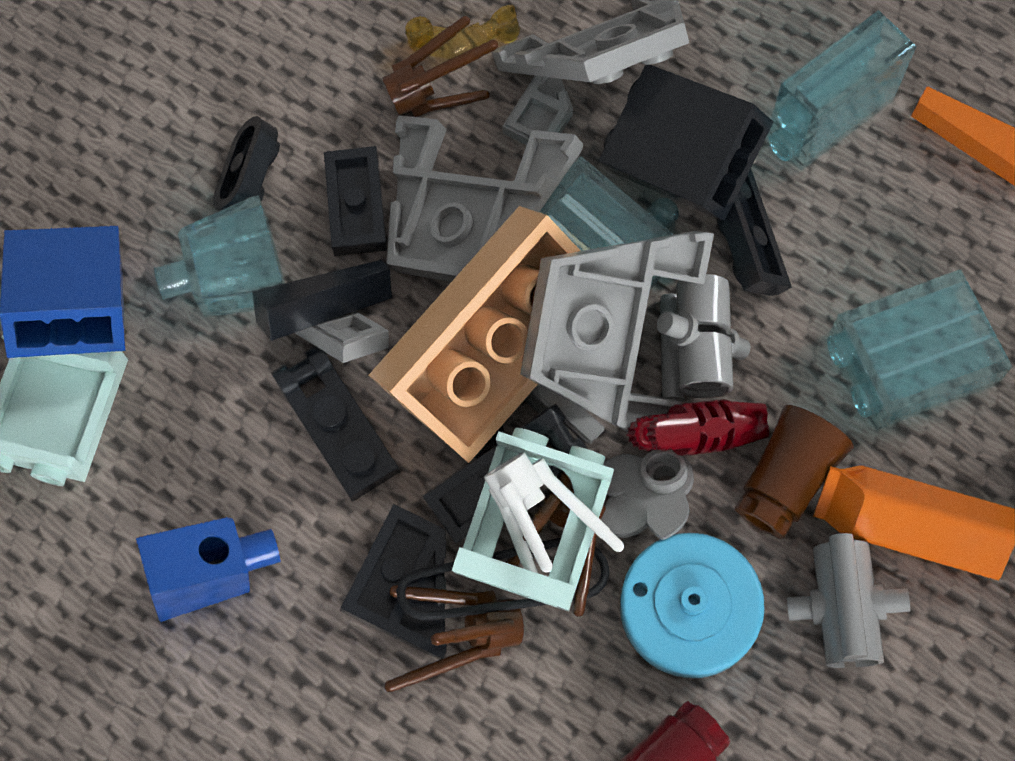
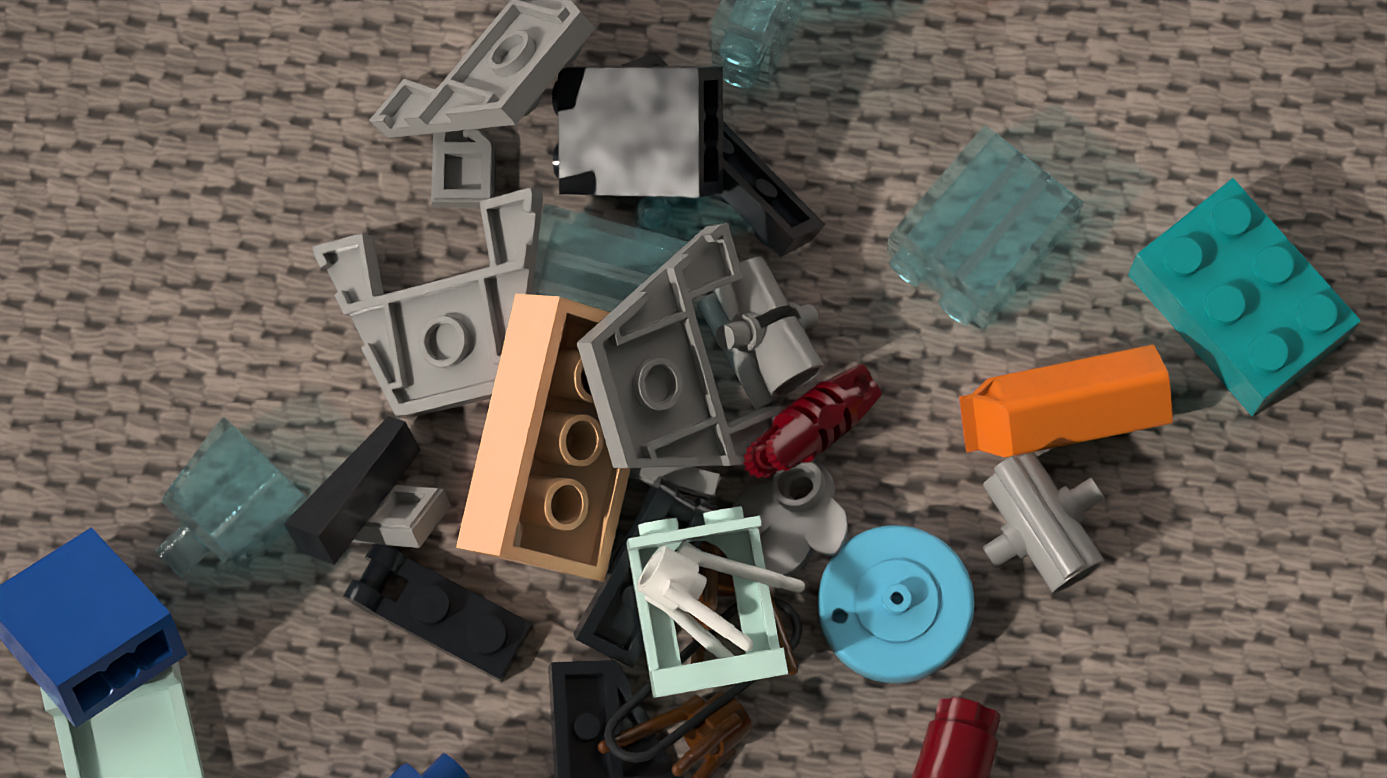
camera: 30 degrees left, 5 degrees up
(247, 163) = (182, 388): black plate -> none
(355, 201) = (322, 365): black plate -> none
(411, 86) = (314, 210): reddish brown plant -> none
(420, 31) = (327, 132): clear yellow arm -> none
(791, 470) = (922, 419): reddish brown plant -> none

